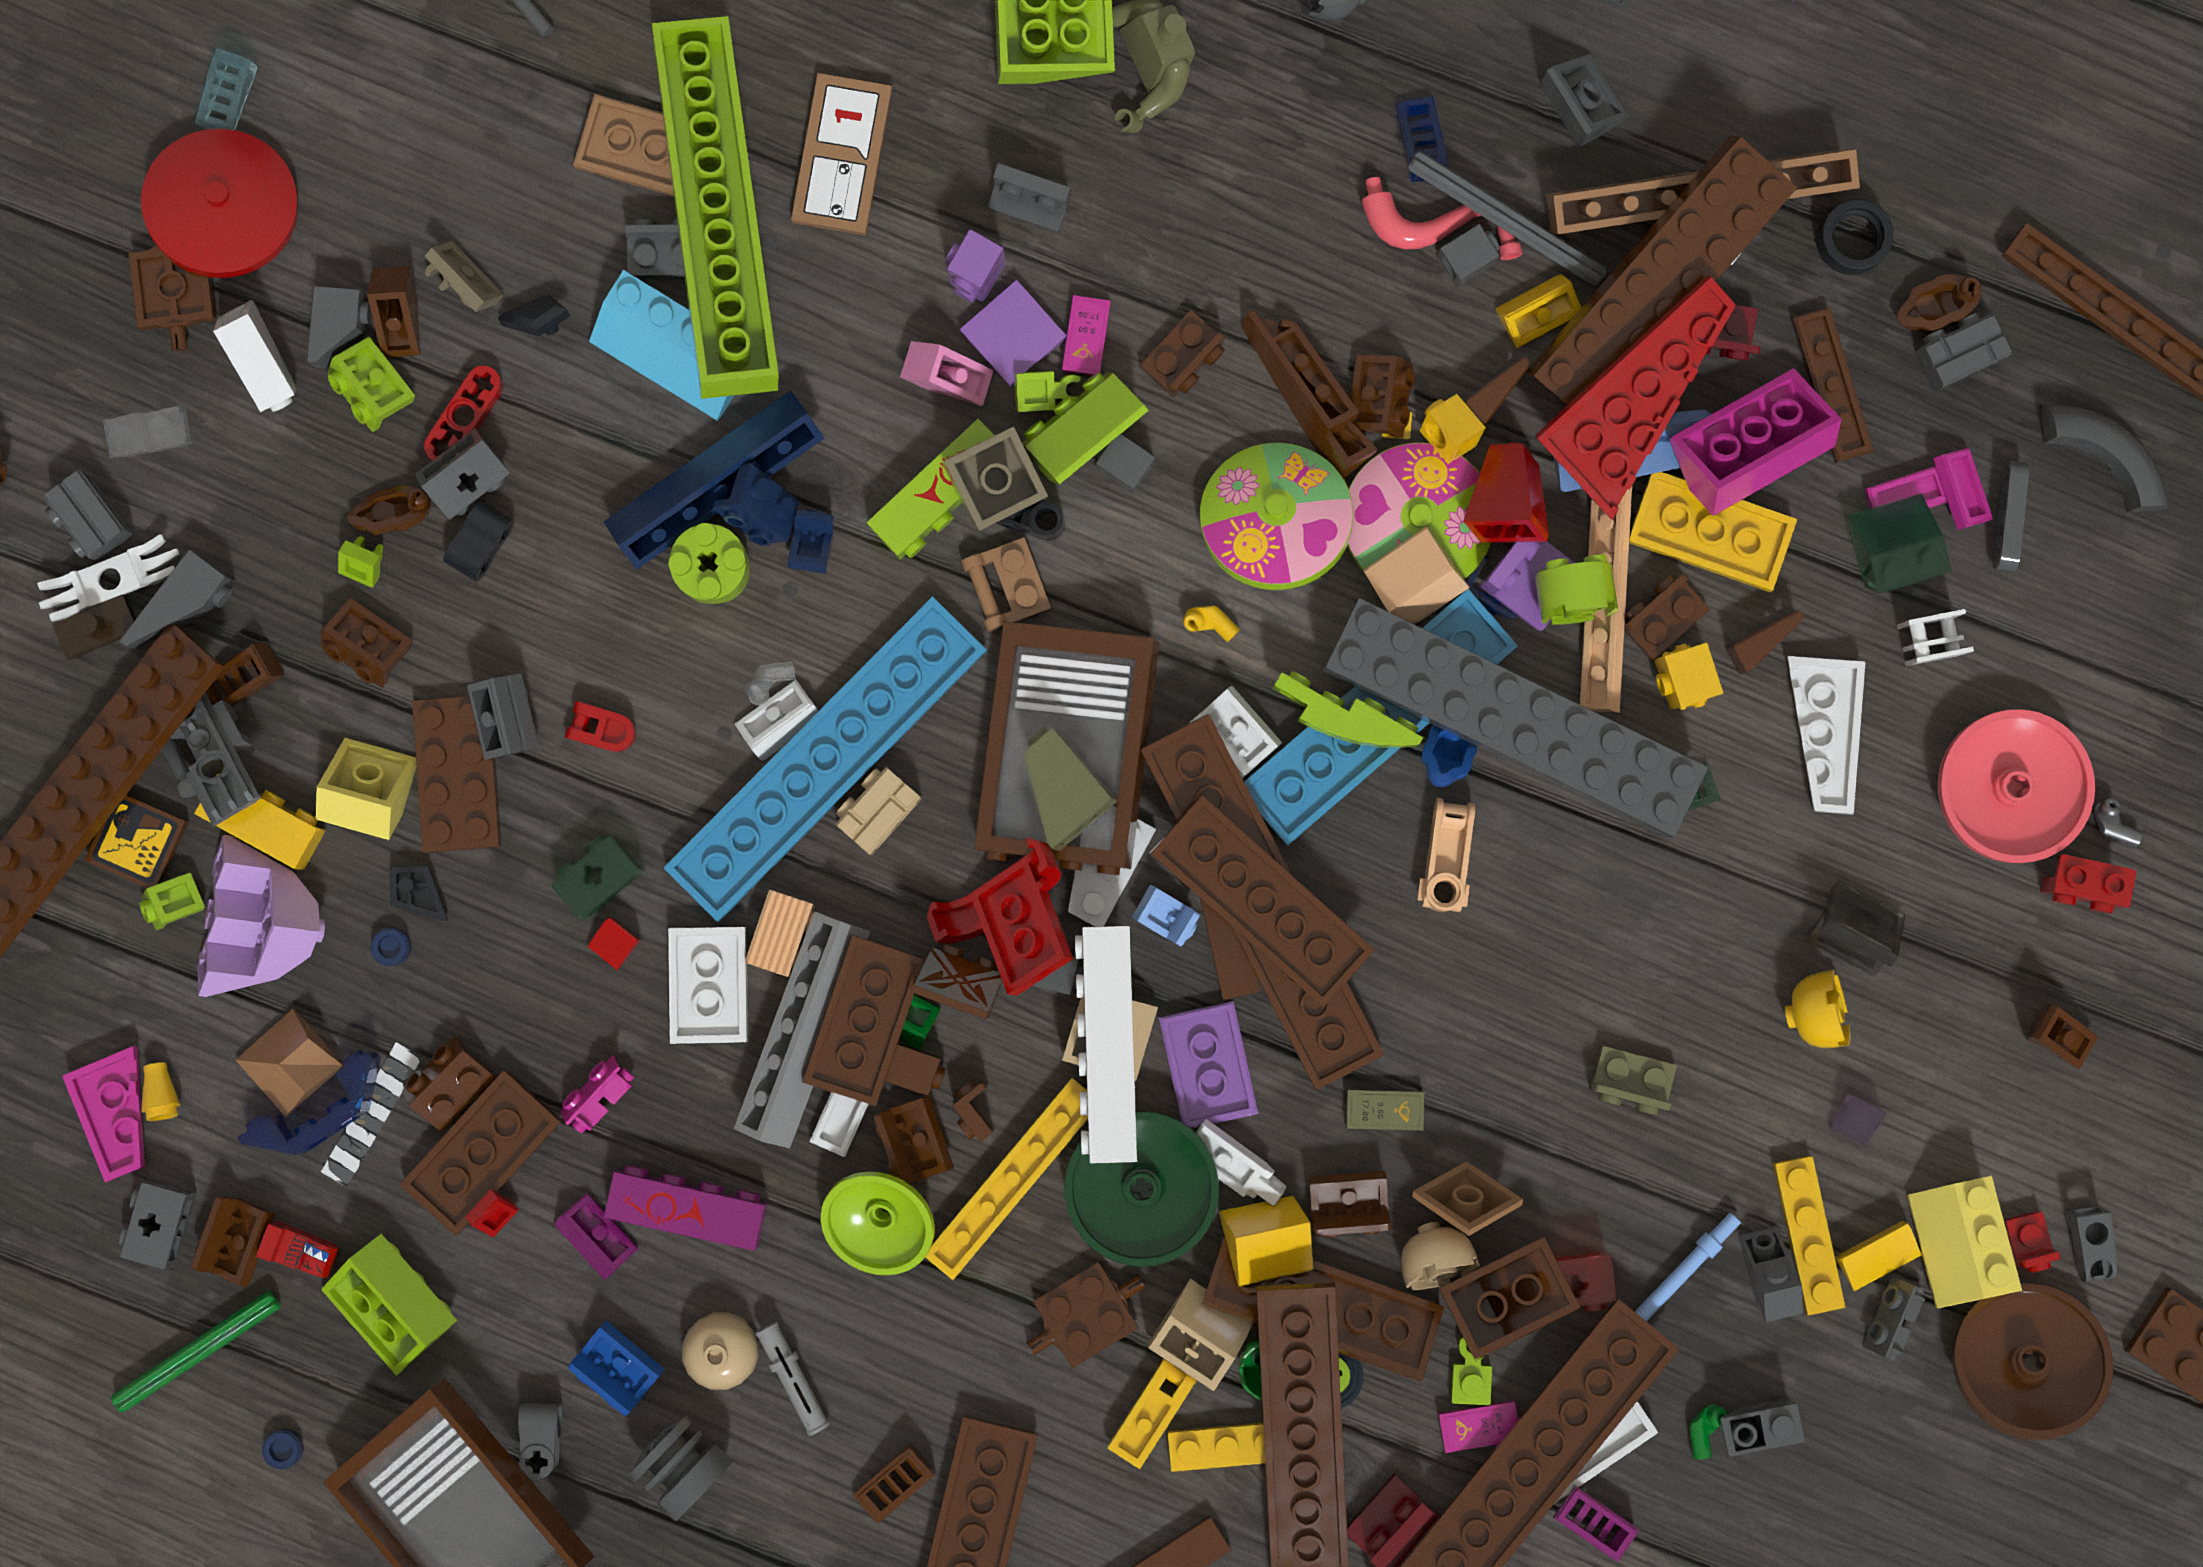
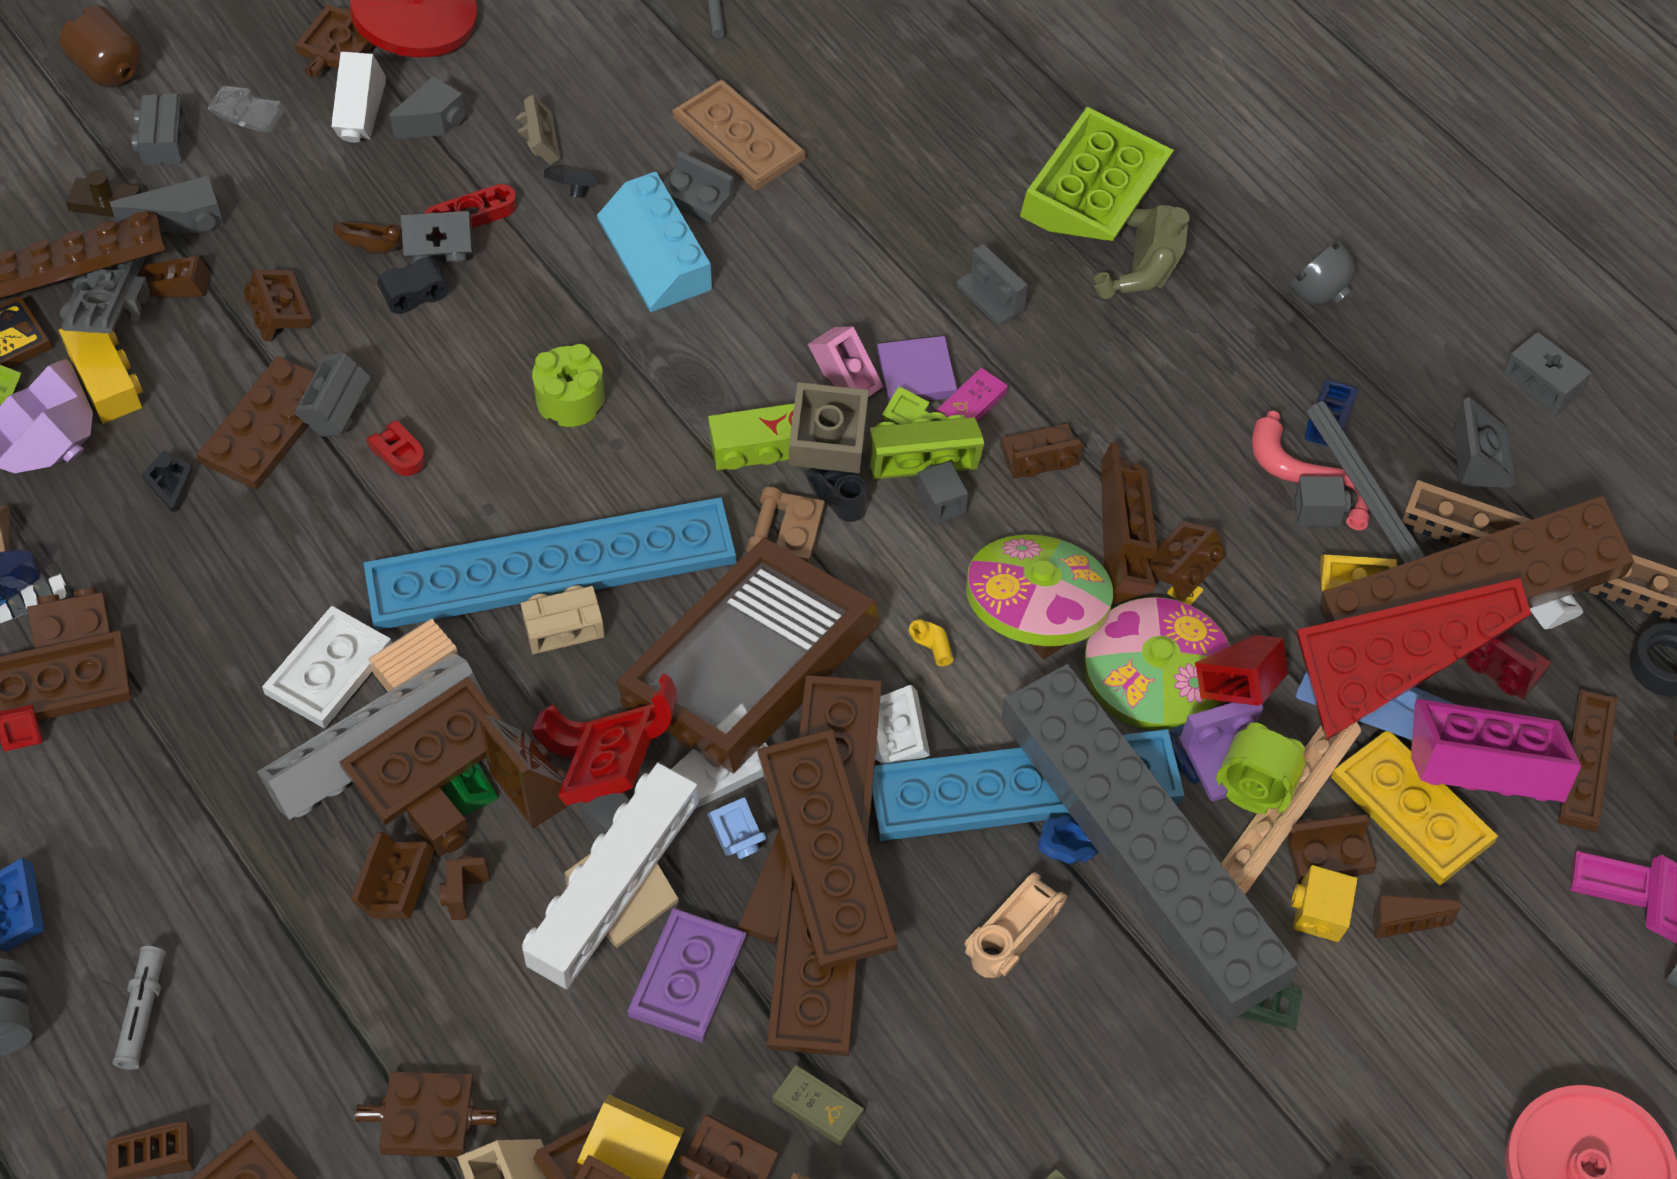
camera: 30 degrees right, 30 degrees down
(87, 581) = (120, 170): white piece -> none
(360, 563) = (319, 253): lime tile -> none
(365, 788) = (190, 389): light yellow slope -> none
(368, 383) = (420, 155): lime bracket -> none
(390, 946) = (116, 505): dark blue tile -> none
(395, 311) = (475, 124): reddish brown slope -> none
(584, 1104) = (158, 694): dark pink hinge -> none
(586, 897) = (308, 542): clear green brick -> none
(595, 1237) = (82, 800): magenta slope -> none
(614, 942) = (282, 597): red slope -> none
(686, 1209) = (170, 818): magenta brick -> none
(688, 494) = (617, 332): dark blue brick -> none
(715, 207) = (748, 166): lime brick -> none
(720, 1351) = (100, 948): tan cylinder -> none
(759, 507) = (634, 364): dark blue bracket -> none
(765, 677) = (553, 485): clear arm -> none
(777, 720) = (532, 517): white slope -> none
(811, 541) = (659, 414): dark blue bracket -> none
(838, 1123) = (349, 831): white tile -> none
(841, 154) = (871, 201): tile -> none
(874, 1238) = (296, 911): lime dish -> none
(974, 266) = (918, 302): medium lavender brick -> none
(1009, 1182) = (431, 964): yellow plate -> none
(1064, 787) = (719, 665): olive slope -> none
(1148, 1207) = (553, 1042): dark green dish -> none
(1239, 1166) = (650, 1063): white hinge -> none
(1359, 725) = (999, 765): lime slope -> none
(1416, 578) = (1131, 693): light nougat slope -> none
(1451, 428) = (1229, 606): yellow brick -> none
(1489, 397) = (1282, 604): reddish brown slope -> none
(1829, 721) = (1436, 1019): white wing -> none
(1898, 544) = (1582, 906): clear green slope -> none
(1921, 644) = (1565, 997): white piece -> none

